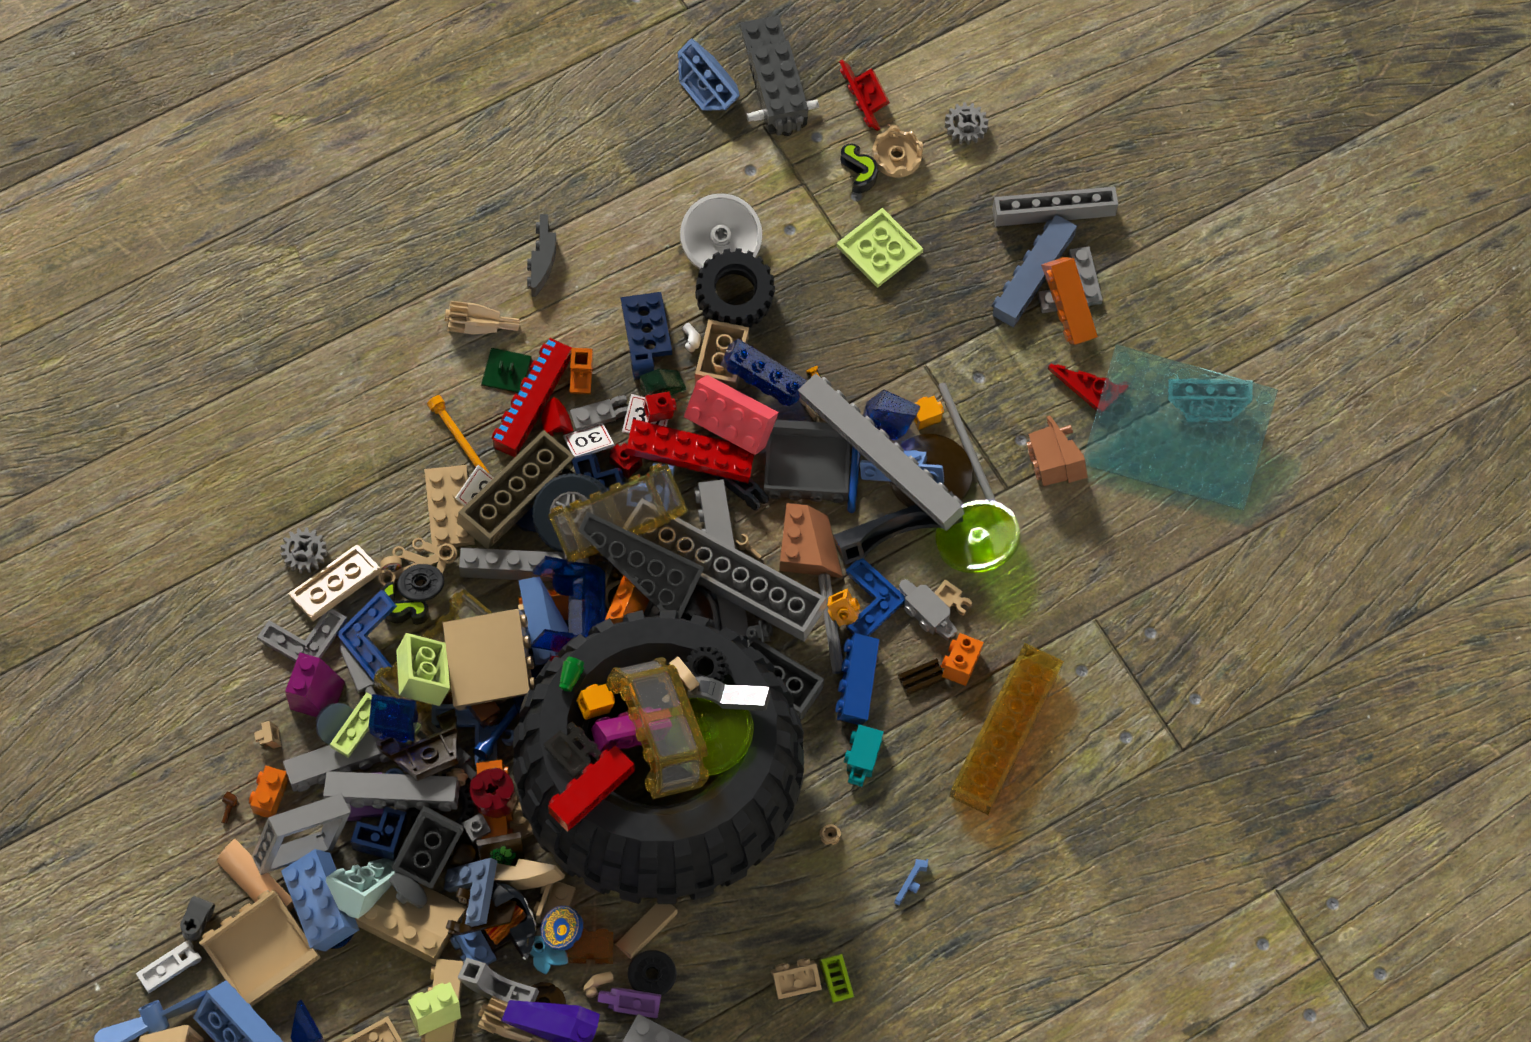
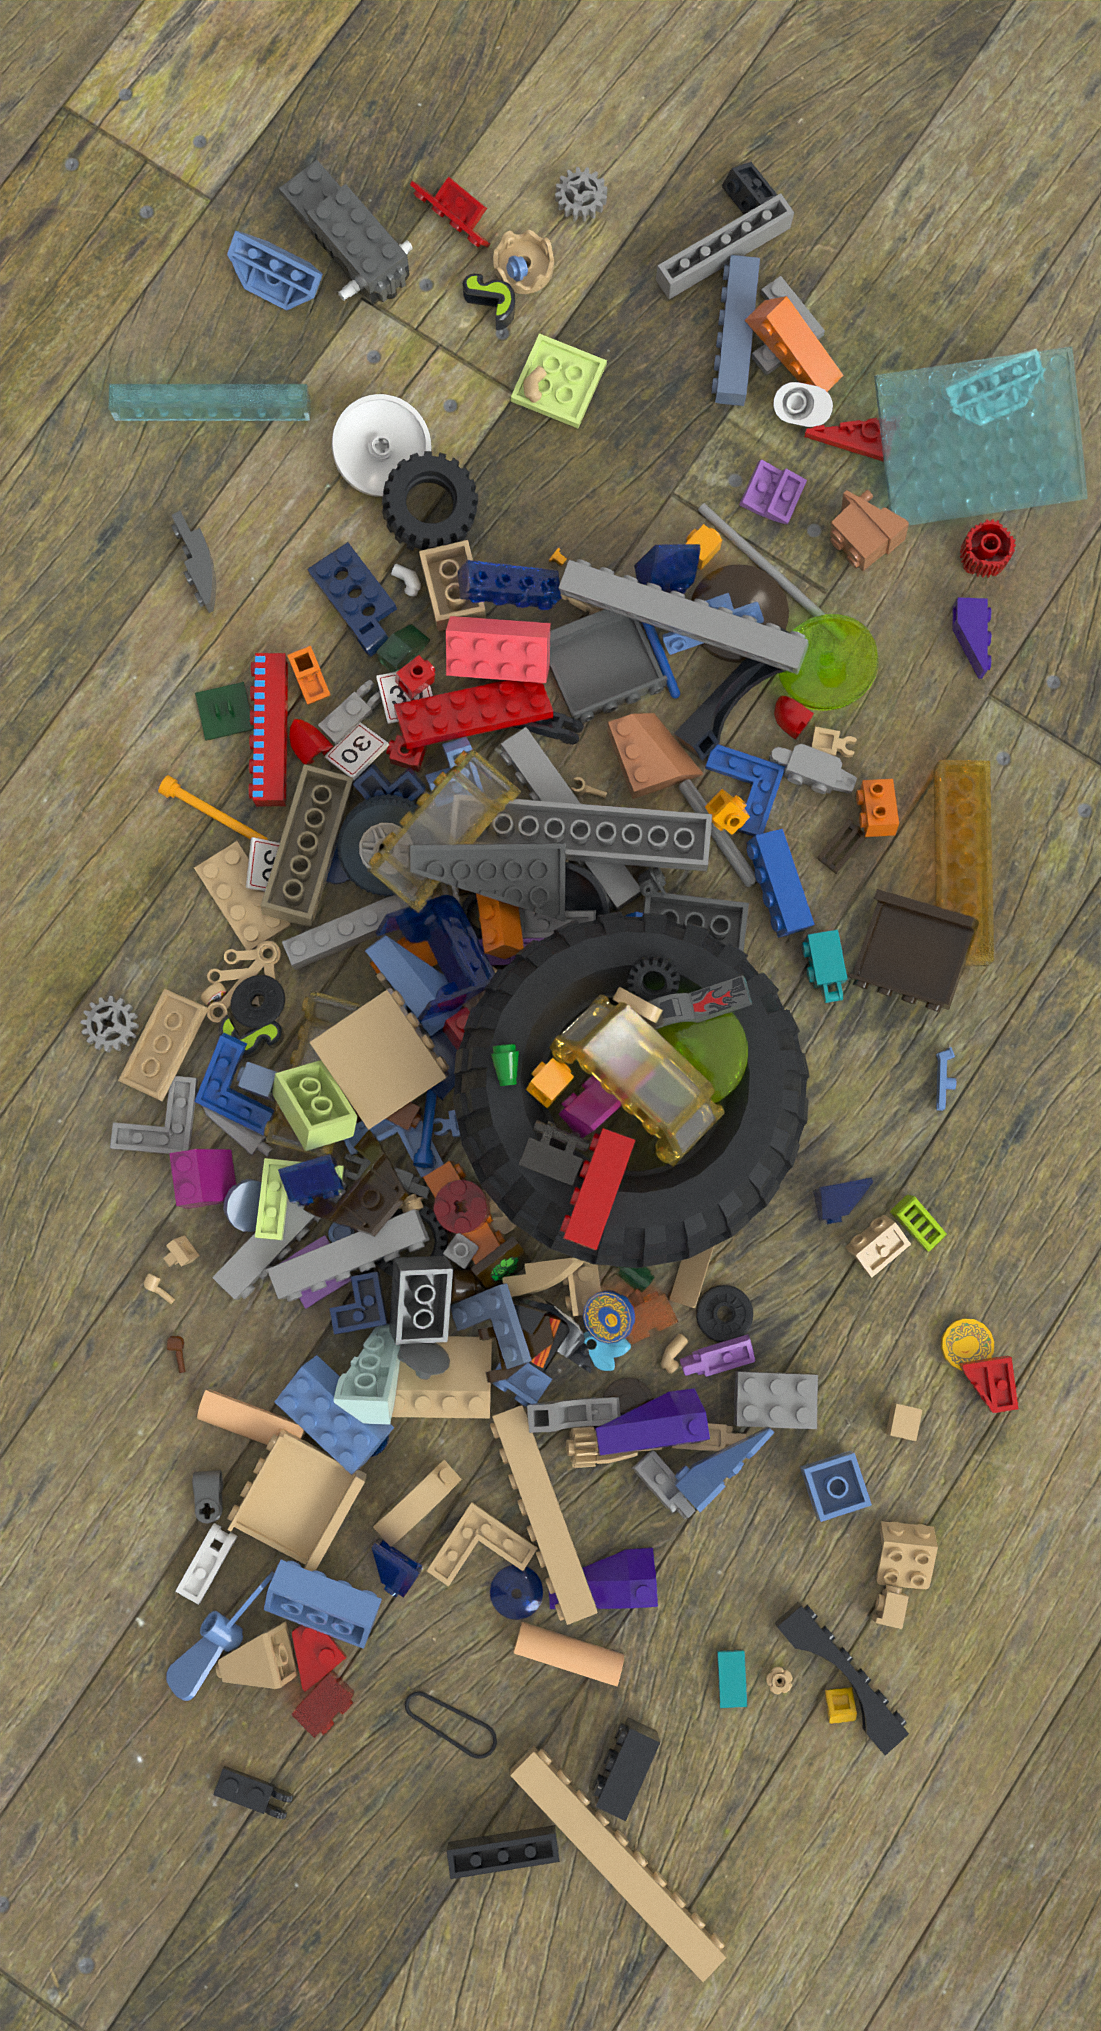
camera: 25 degrees left, 15 degrees up
(235, 748) = (151, 1283): none -> tan hand
(269, 791) = (214, 1317): orange brick -> none
(273, 855) = (279, 1359): light grey window -> none
(345, 993) = (417, 1503): none -> tan arch
(389, 637) = (257, 1080): none -> sand blue brick
(434, 1008) = (524, 1484): yellowish green brick -> none
(476, 319) = (162, 668): tan piece -> none
(598, 910) = (636, 1277): none -> clear green brick
(611, 149) = (209, 402): none -> clear light blue brick
(784, 926) = (839, 1199): none -> clear blue slope
(830, 828) = (837, 1062): tan plate -> none
(856, 240) = (531, 384): none -> tan arm
(888, 154) = (517, 268): none -> medium blue plate
(932, 565) = (791, 716): none -> red brick
(934, 772) = (914, 951): none -> dark brown panel
(1002, 398) = (772, 492): none -> medium lavender slope
(1055, 344) = (803, 404): none -> white piece
(1097, 172) = (747, 187): none -> black bracket
(1103, 562) = (970, 627): none -> dark purple slope
(1135, 514) = (982, 560): none -> red brick

